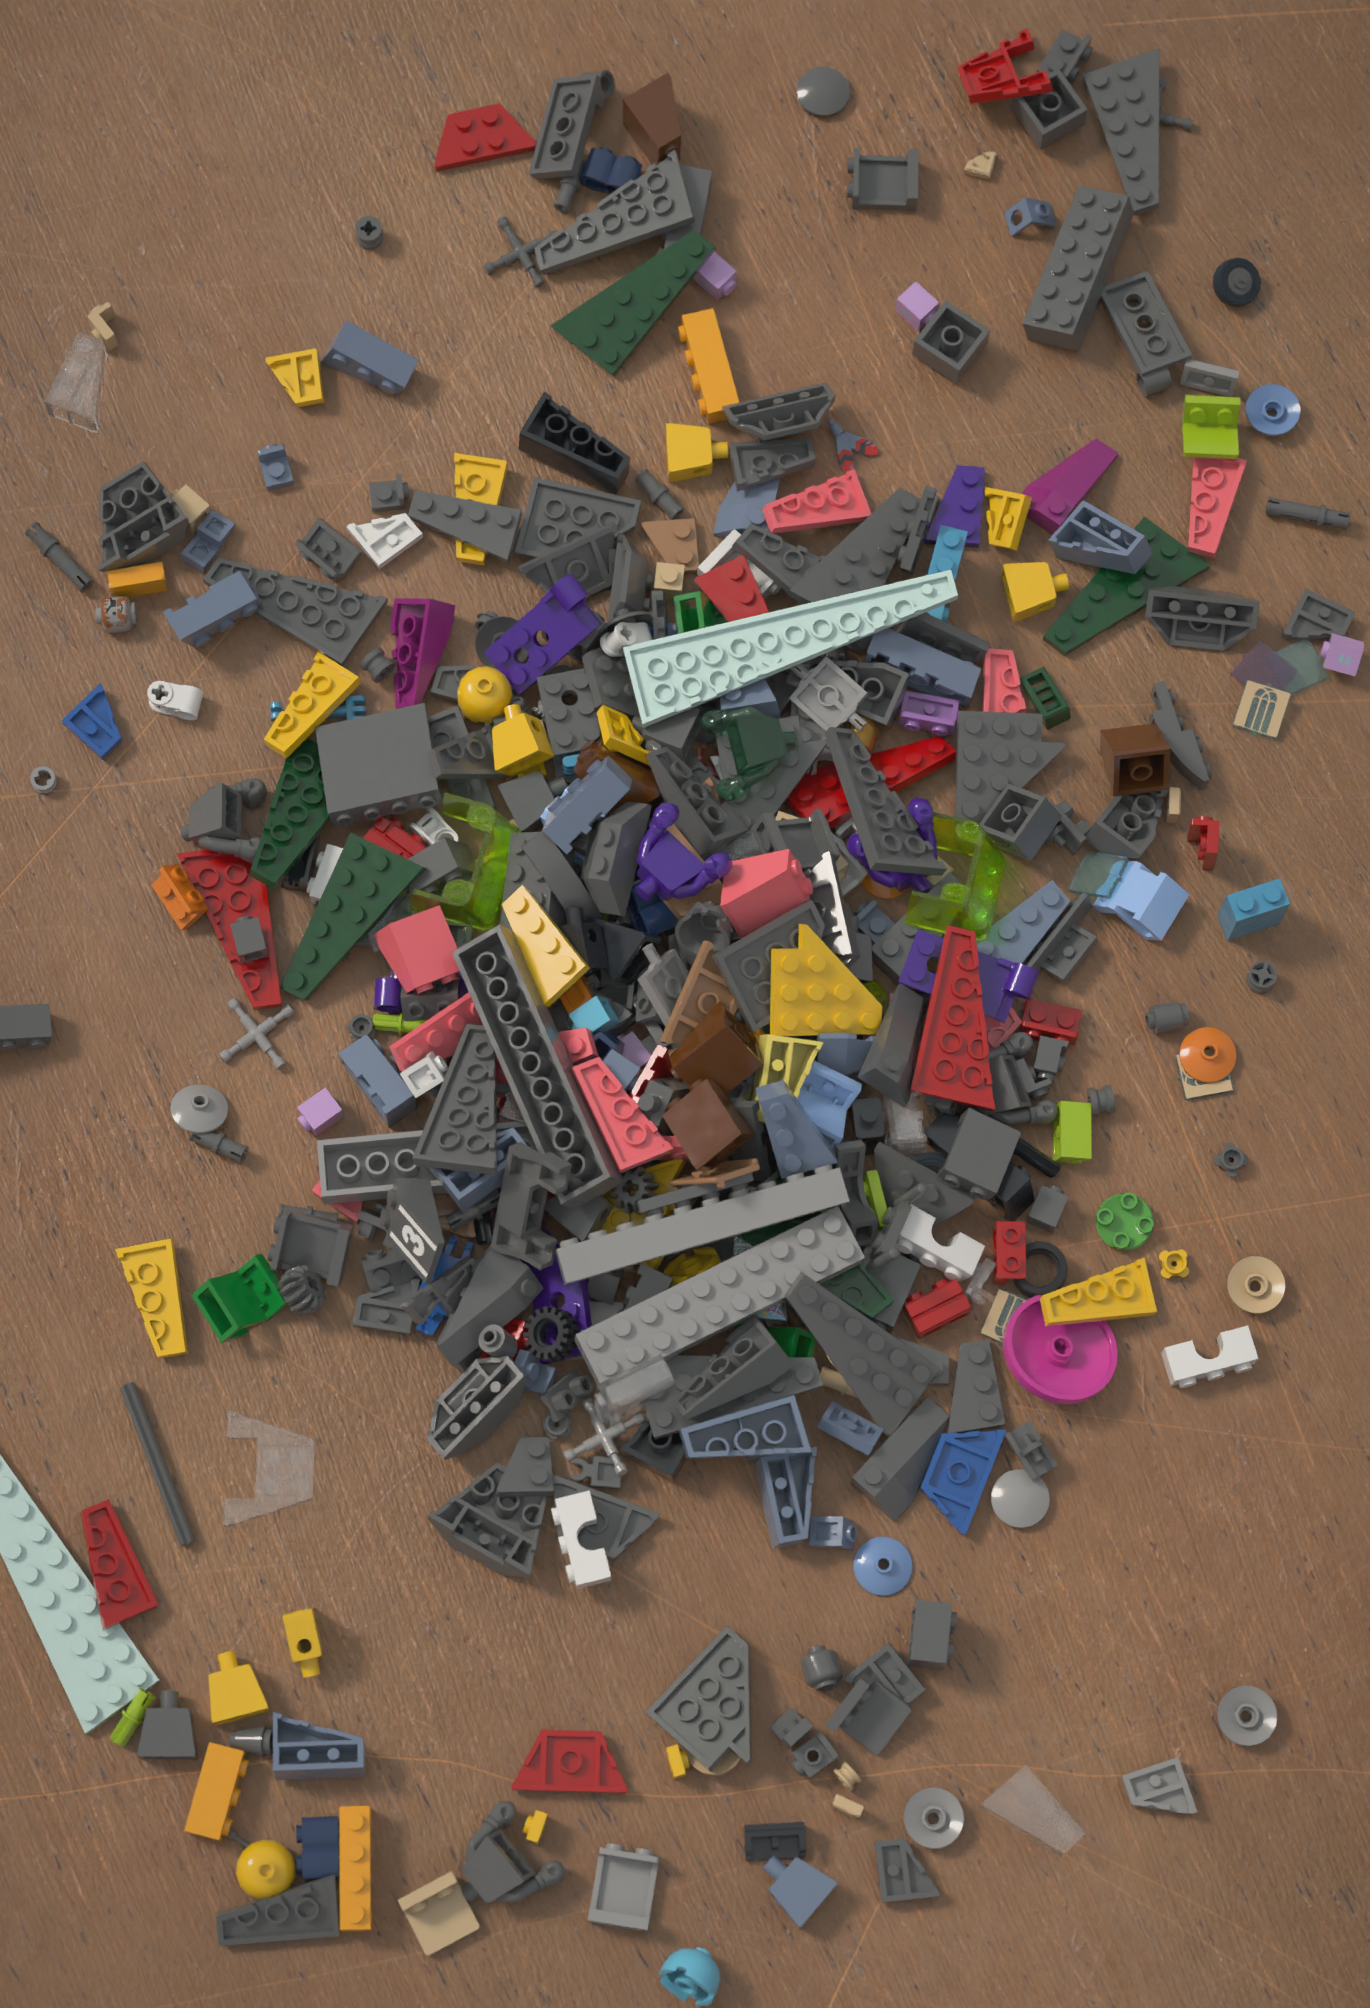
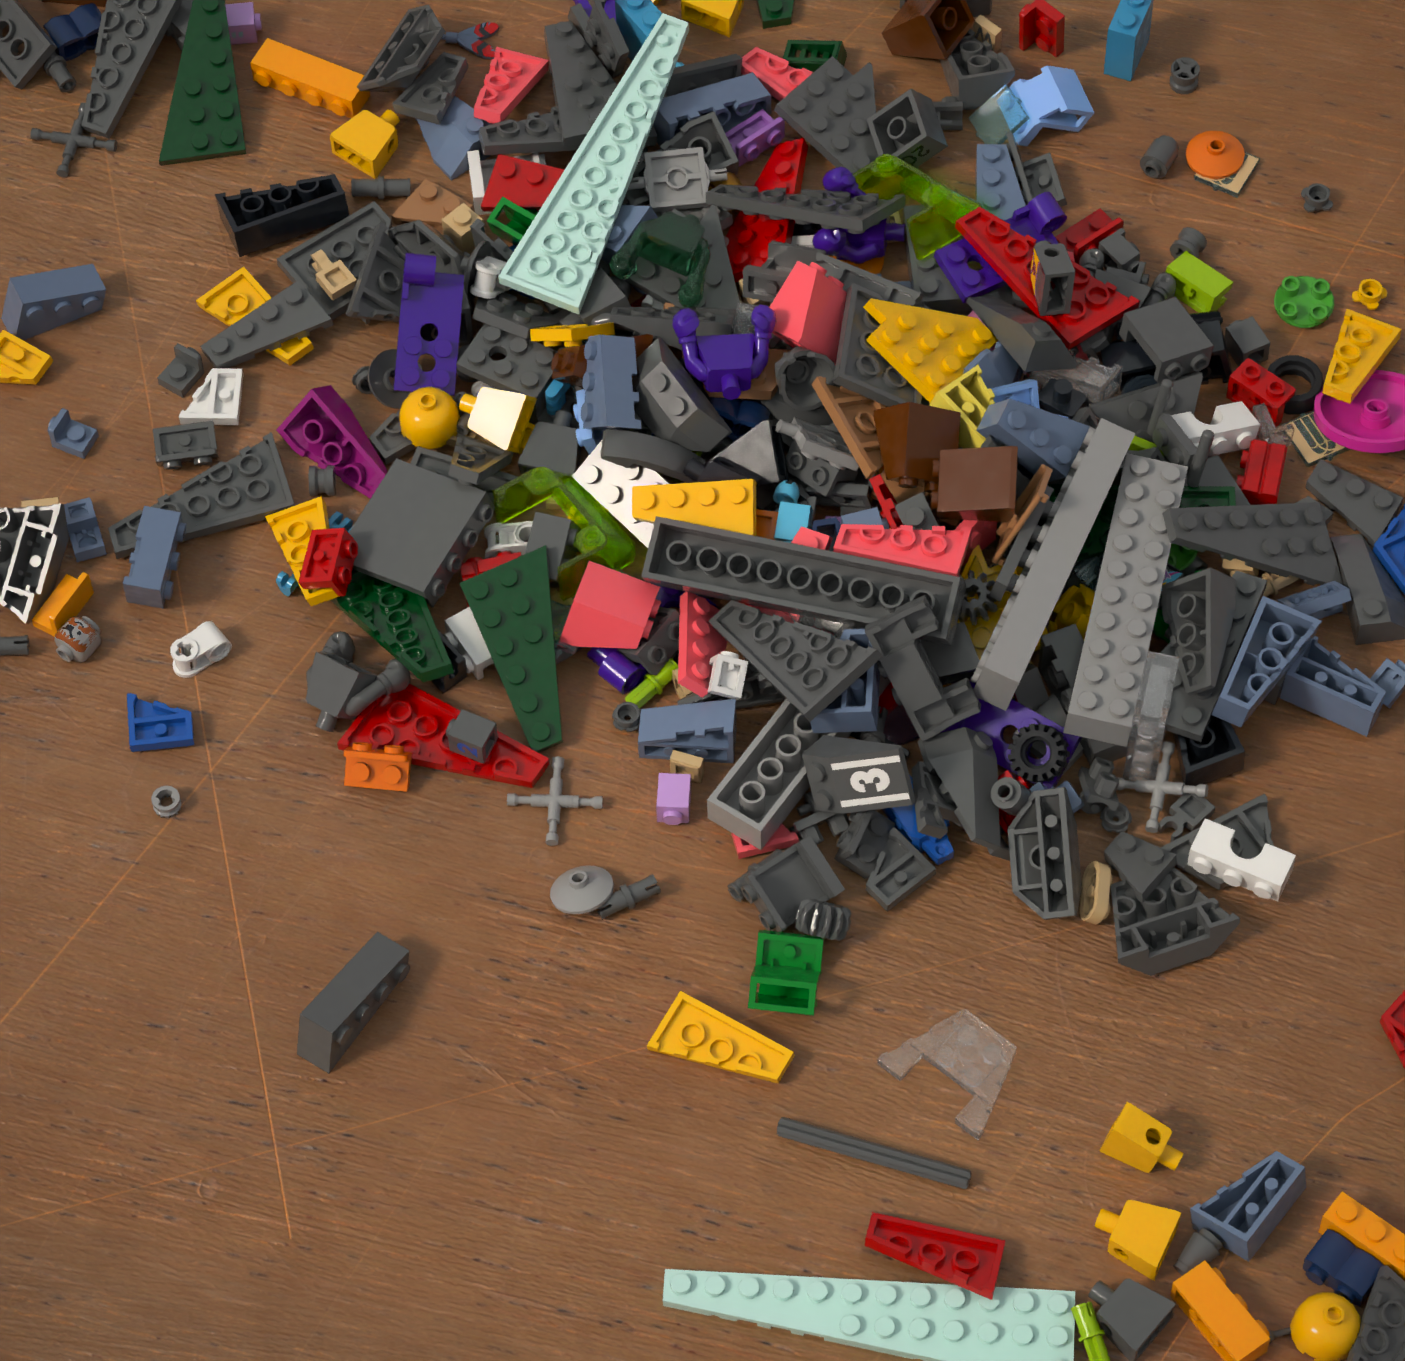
camera: 45 degrees left, 15 degrees down
(301, 729) = (329, 560): none -> red bracket
(352, 1100) = (687, 764): none -> tan tile
(489, 1452) = (1095, 893): none -> tan plate
(546, 530) = (332, 277): none -> tan plate
(613, 994) = (786, 492): none -> medium azure hinge
(947, 1033) = (1052, 264): none -> dark grey torso

